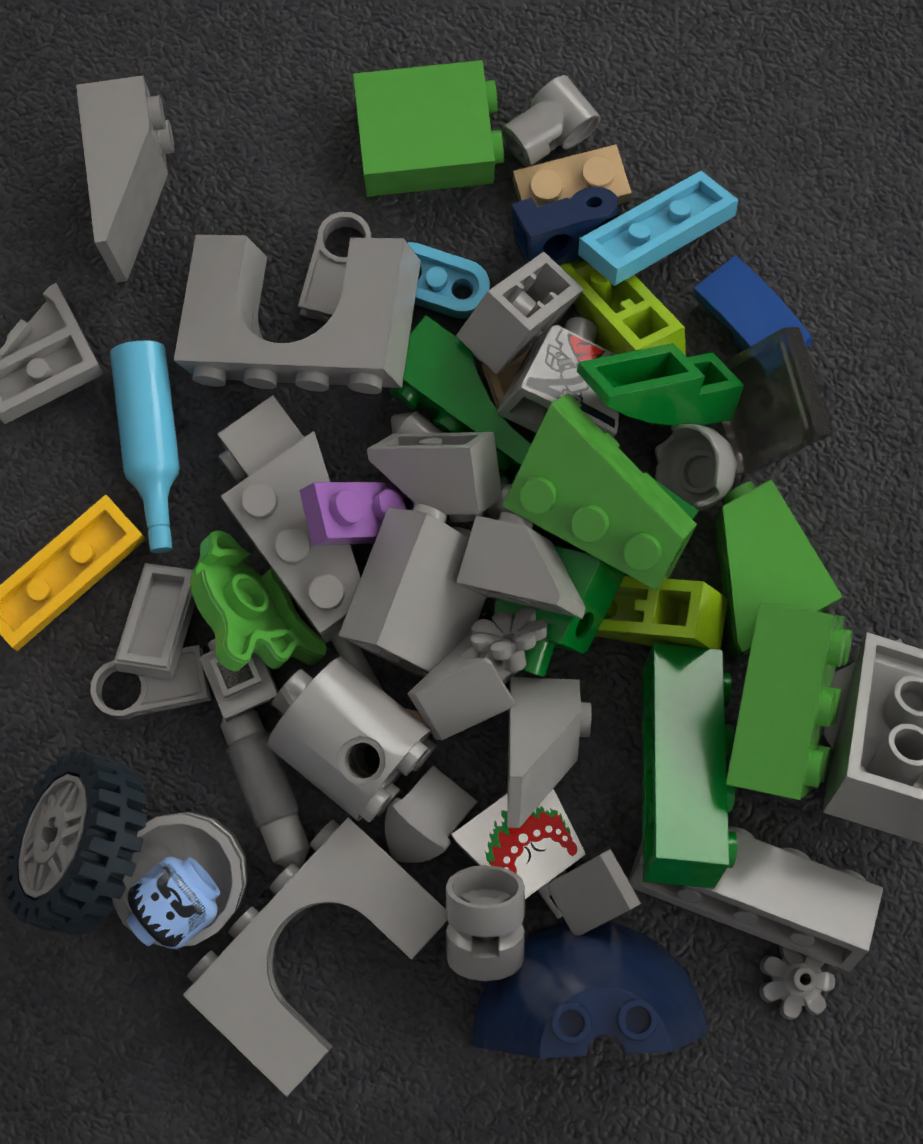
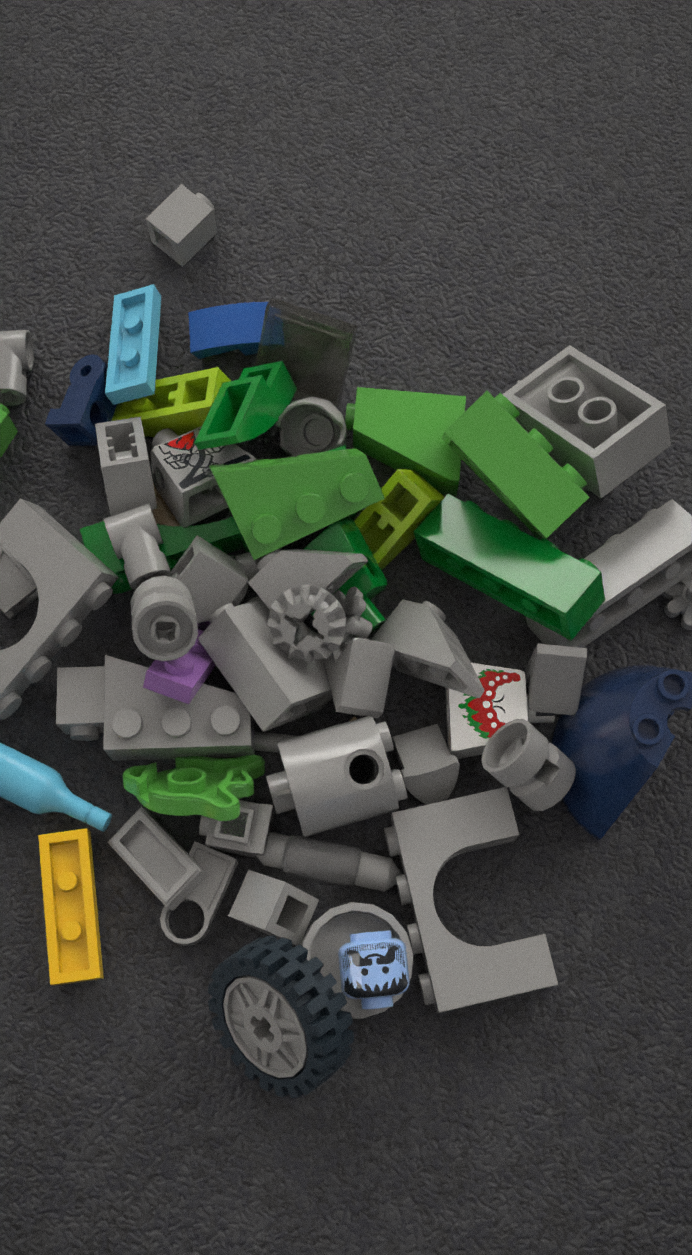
camera: 55 degrees left, 5 degrees down
(180, 765) = (273, 907): none -> light grey brick
(377, 461) = (163, 618): none -> light grey wheel
(442, 275) = (58, 498): medium azure plate -> none
(447, 376) = (137, 541): none -> light grey piece
(482, 624) = (329, 621): none -> light grey gear
(568, 175) = (53, 378): tan plate -> none
(828, 180) = (182, 224): none -> light grey brick

